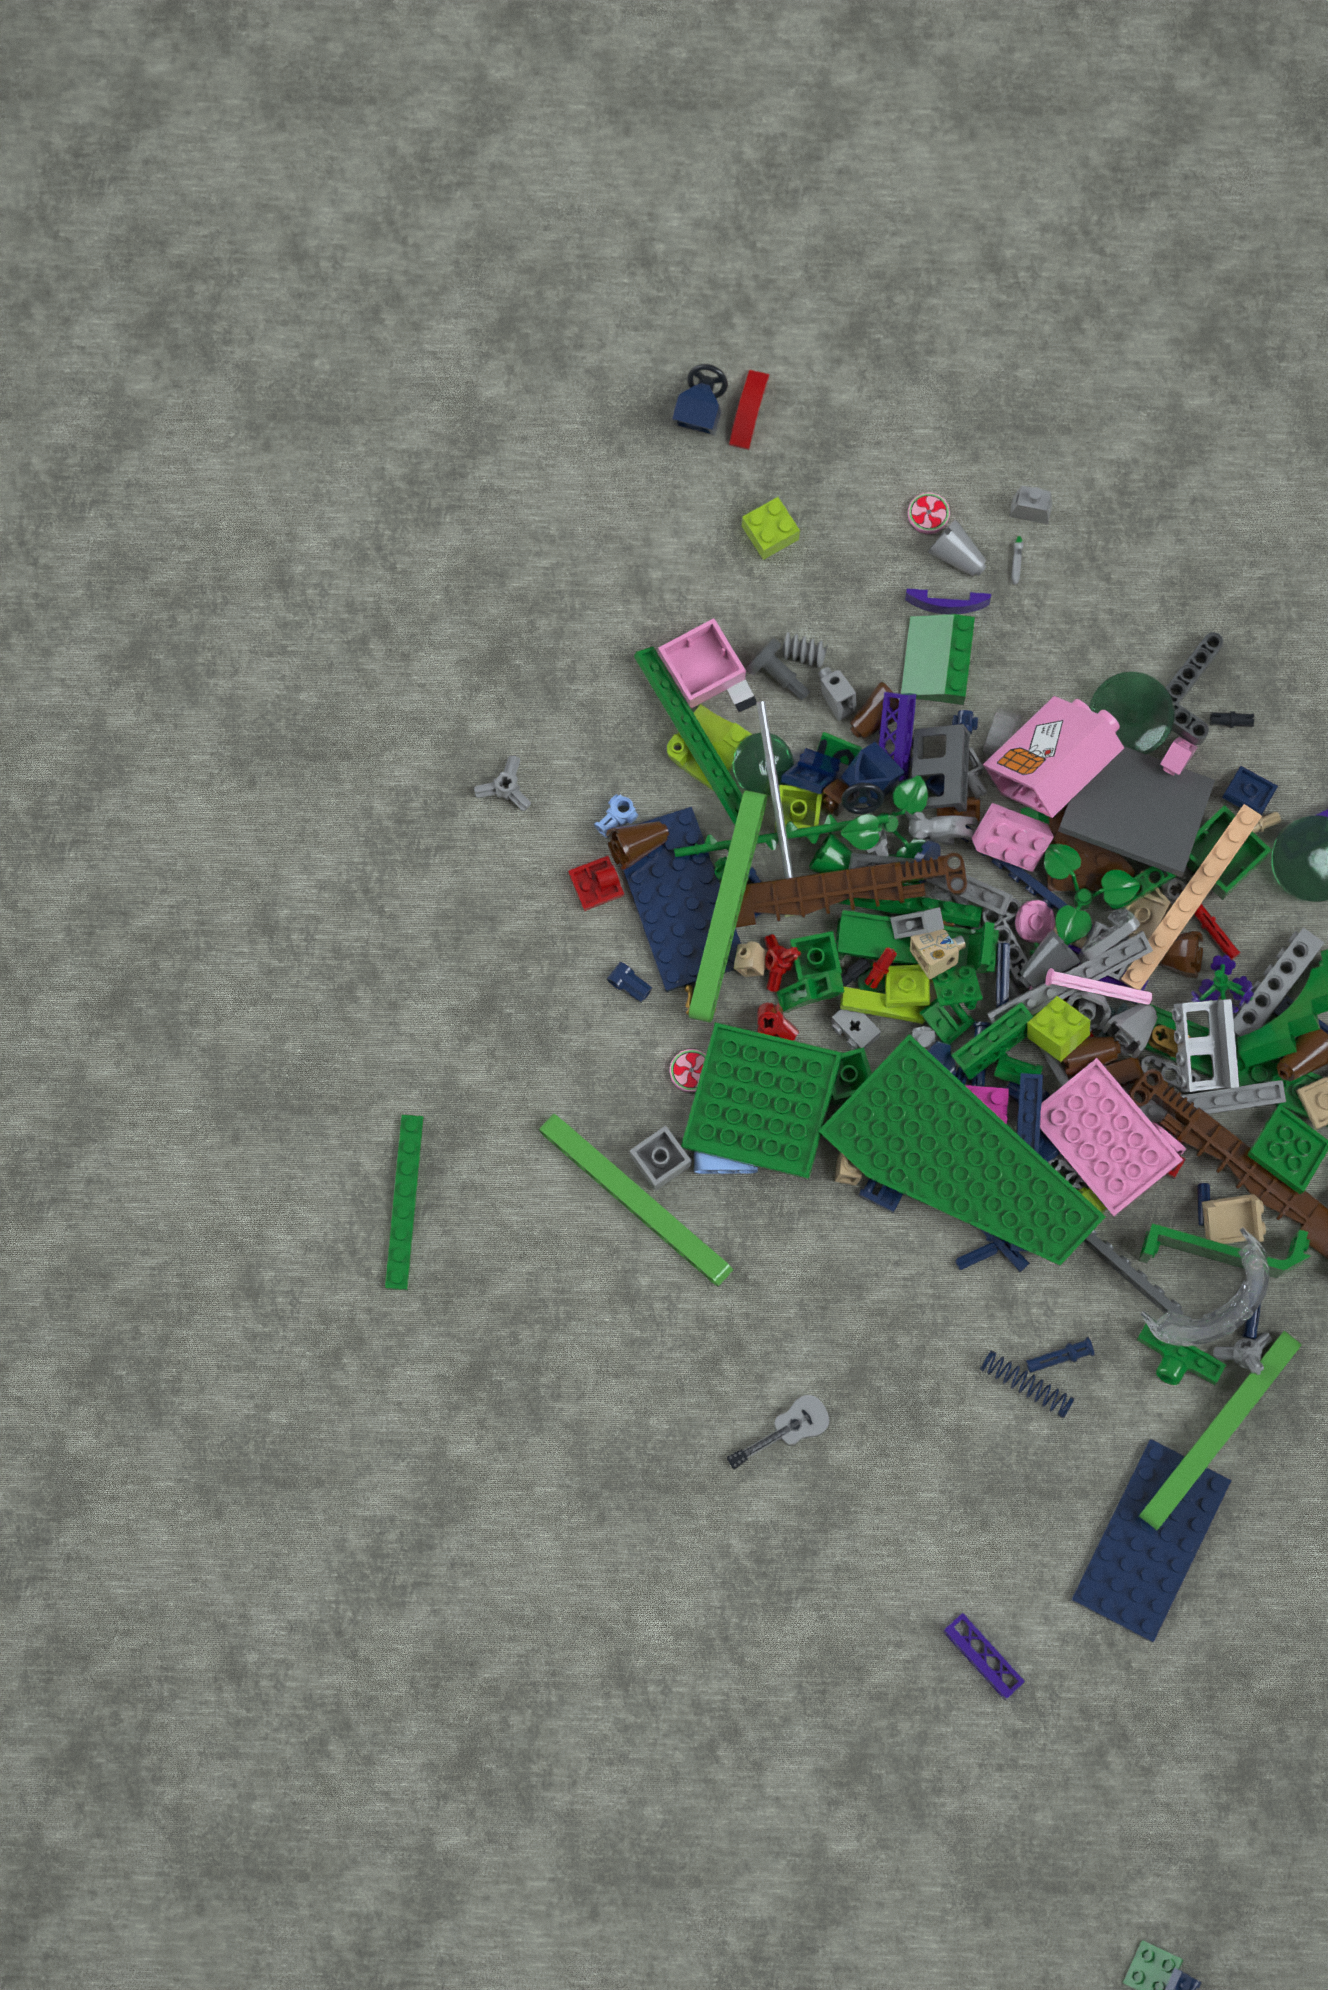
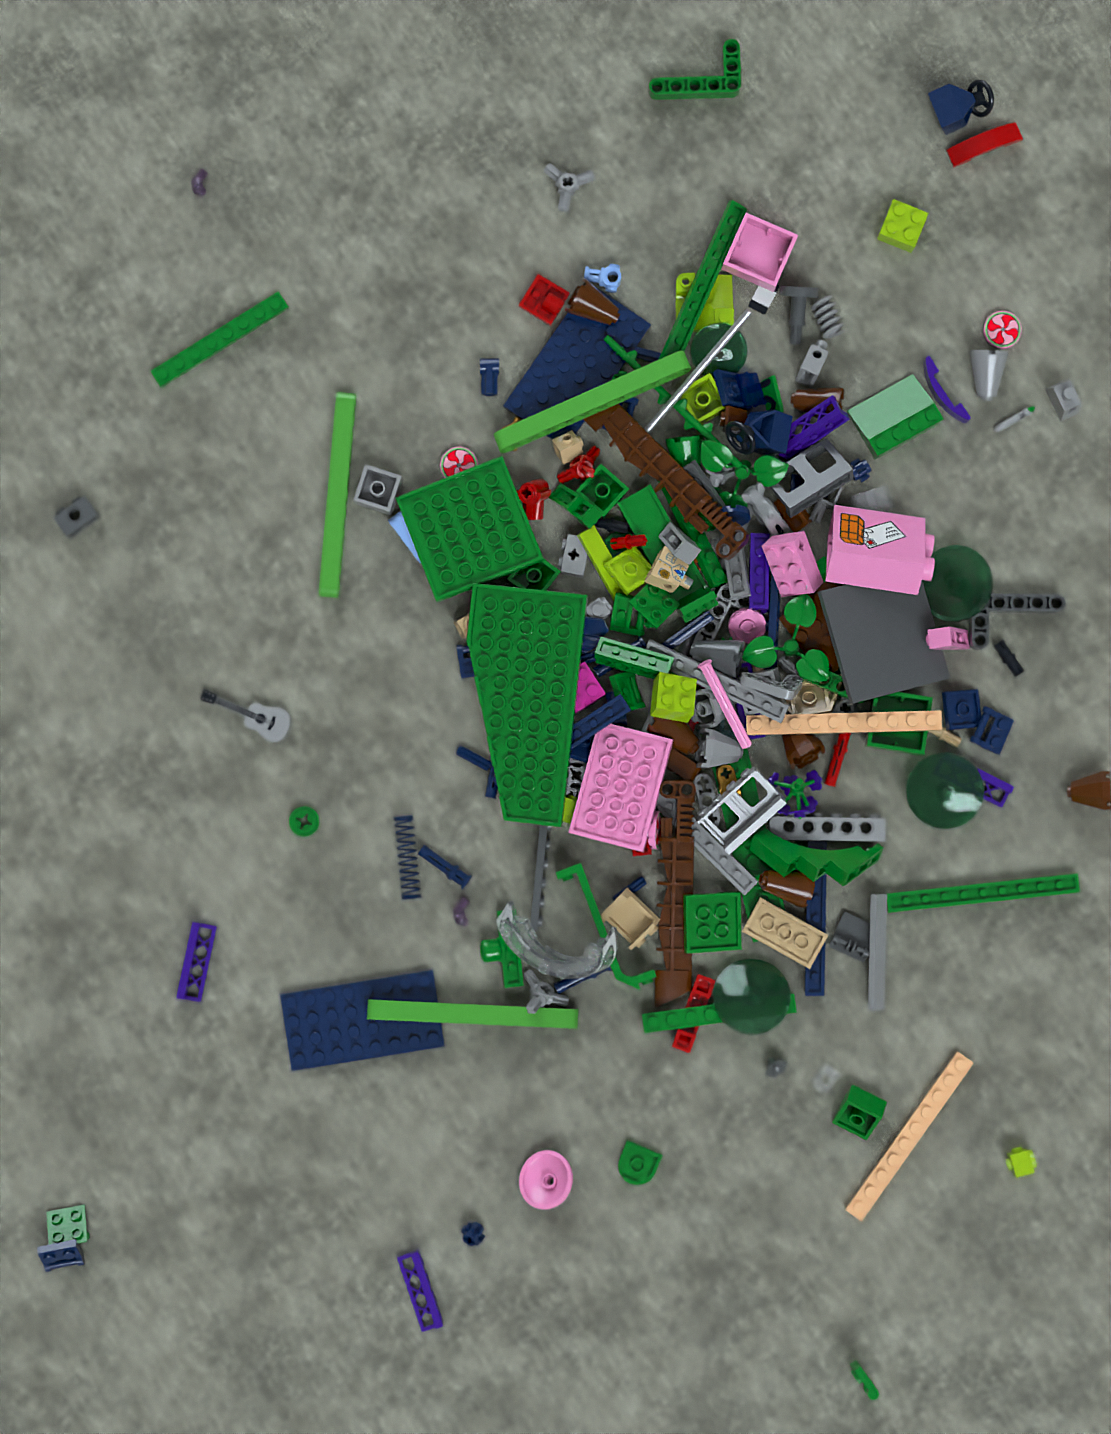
camera: 55 degrees right, 10 degrees up
(241, 1115) = (197, 186): none -> clear purple arm
(471, 1471) = (87, 516): none -> dark grey brick
(506, 603) = (703, 82): none -> green beam
(719, 828) = (646, 354): none -> dark blue axle
(923, 1445) = (307, 830): none -> green gear
(996, 874) = (758, 573): none -> dark purple fence
(1099, 913) = (787, 666): none -> light grey piece
(1113, 1375) = (459, 914): none -> clear purple arm
(1292, 778) = (996, 733): none -> dark blue plate

